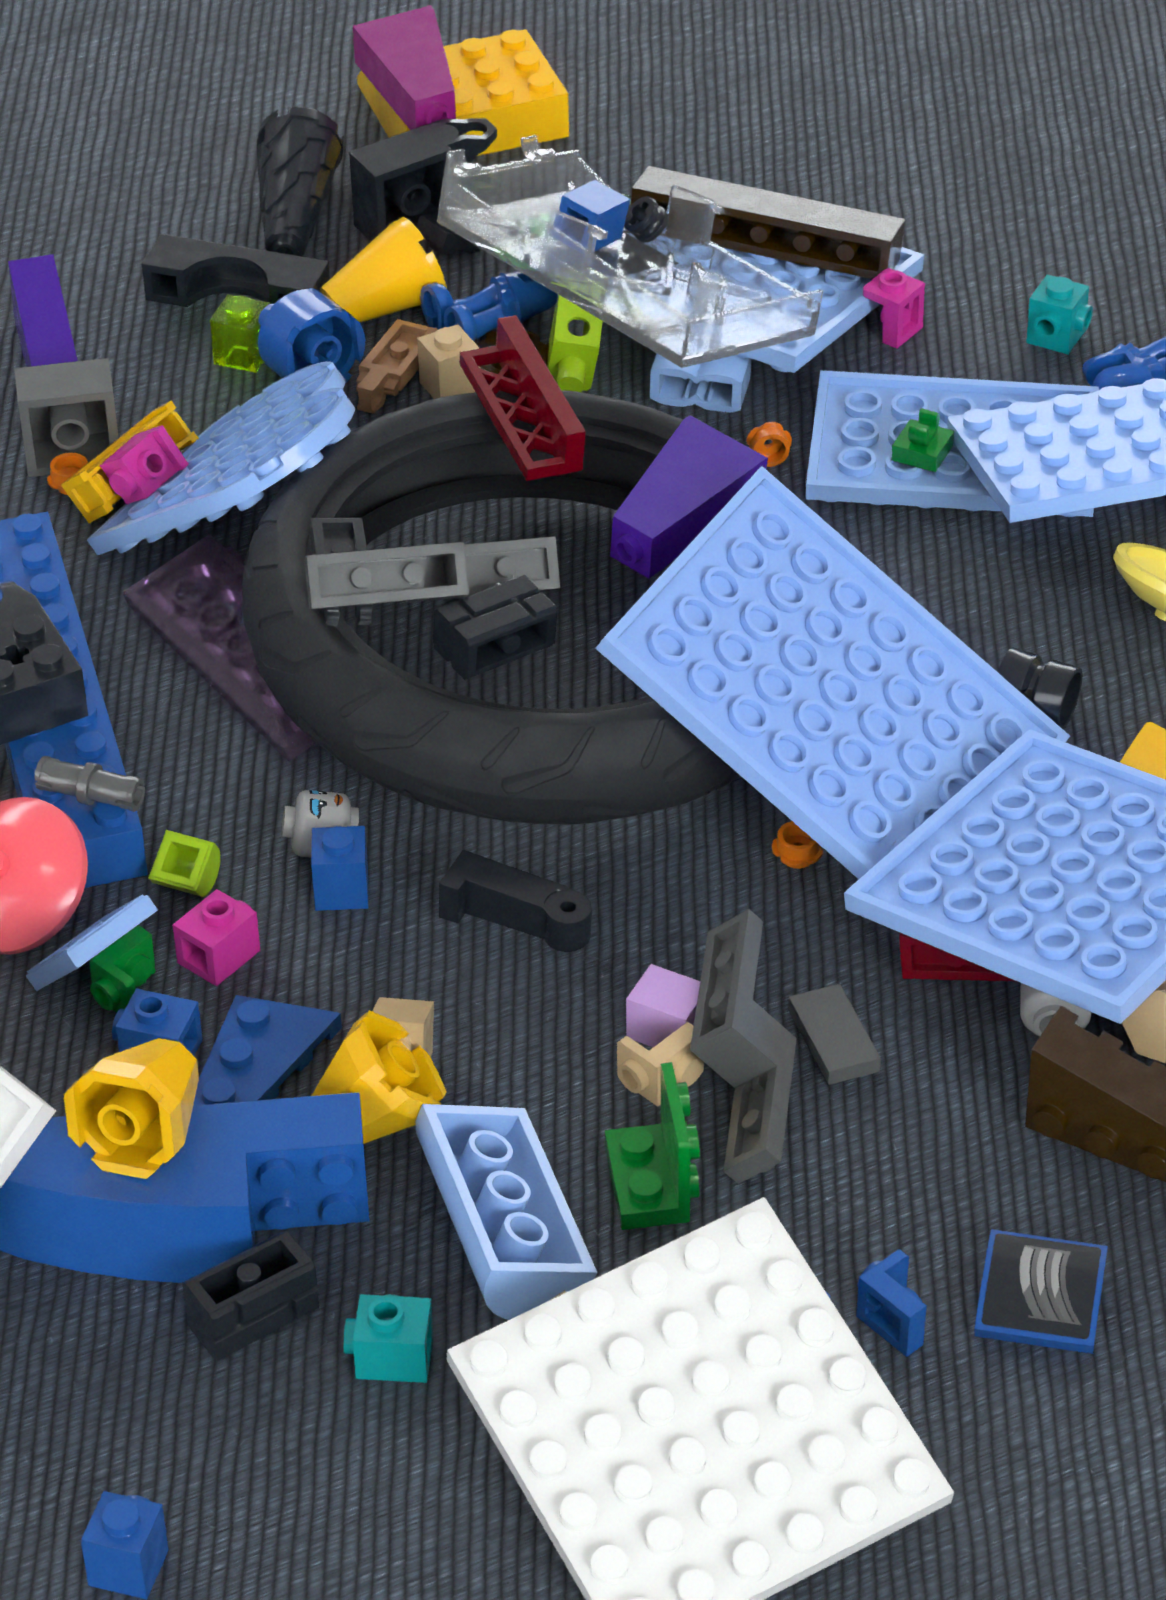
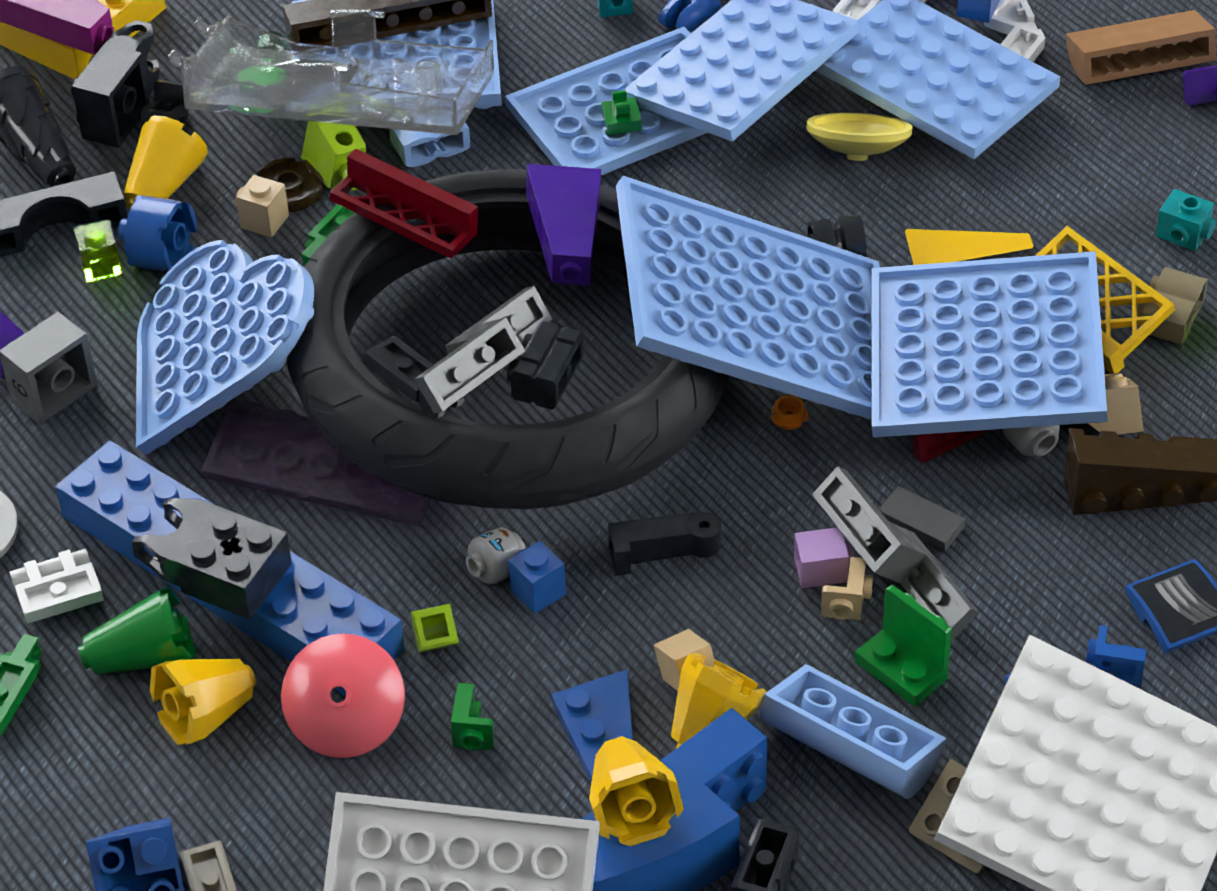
camera: 35 degrees left, 5 degrees up
(64, 467) = (74, 407): orange plate -> none
(89, 783) = (351, 607): dark grey pin -> none
(90, 485) = (115, 378): yellow container -> none
(90, 942) = (437, 711): light blue tile -> none
(143, 464) = (140, 374): dark pink brick -> none
(157, 1016) = (530, 745): blue brick -> none
(216, 937) = (503, 664): dark pink brick -> none
(389, 364) = (217, 215): medium nougat hinge -> none
(391, 1338) = (864, 848): teal brick -> none
(479, 313) = (246, 138): blue piece -> none
(599, 207) = (290, 49): blue brick -> none
(646, 219) = (315, 38): black bush -> none
(775, 451) = (516, 157): orange plate -> none
(901, 302) = (511, 22): dark pink bracket -> none

